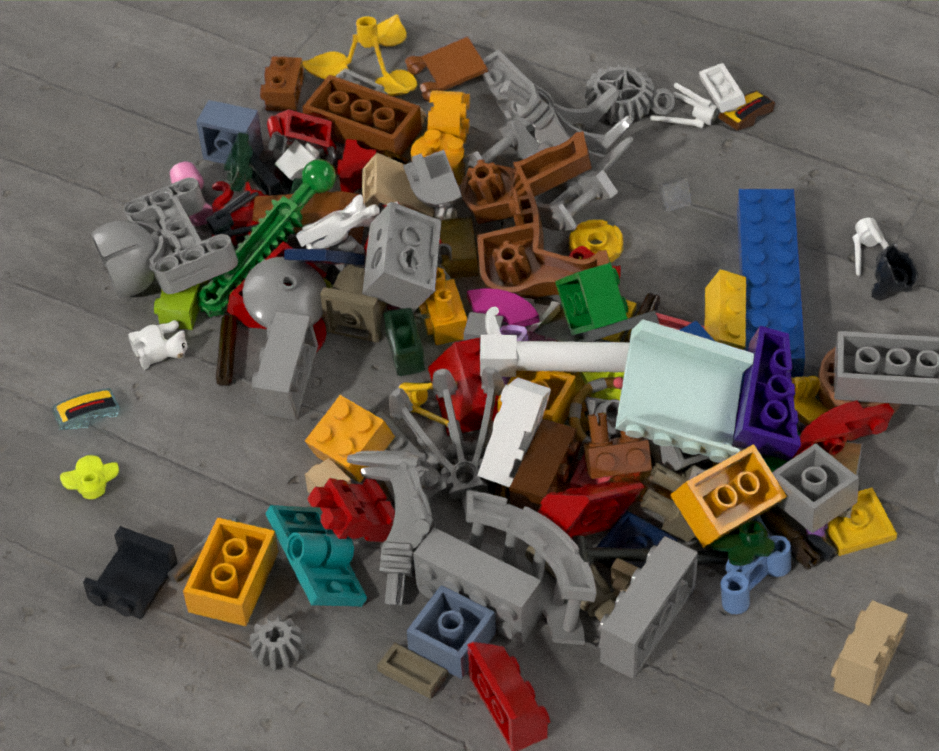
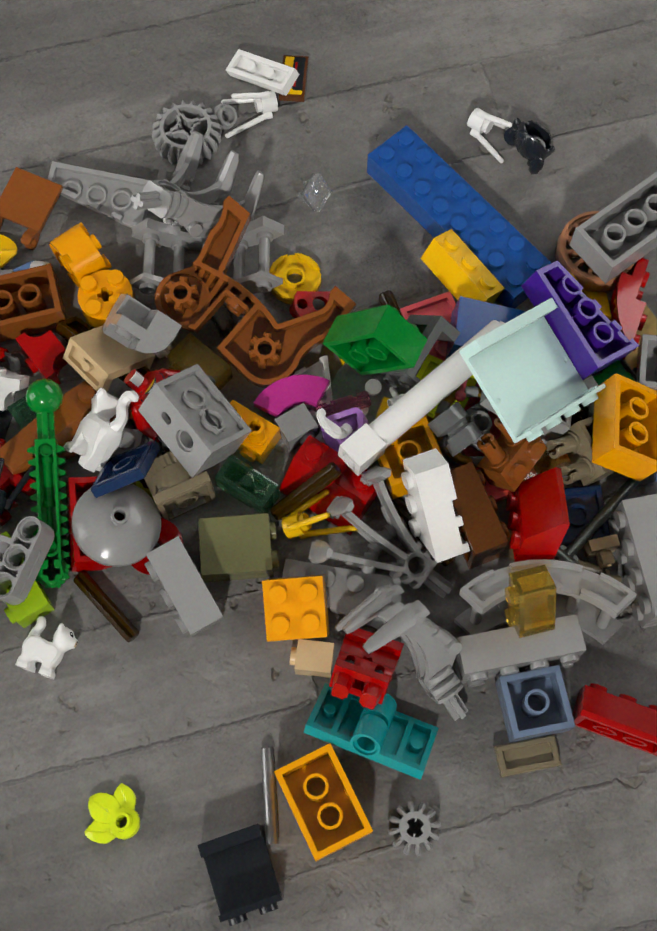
camera: 45 degrees left, 20 degrees up
(79, 409) = (45, 759): slope -> none
(354, 373) = (237, 547): none -> olive brick
(456, 367) = (306, 491): none -> dark brown axle
(507, 532) = (531, 601): none -> clear yellow piece
(585, 394) = (455, 429): none -> dark grey wheel

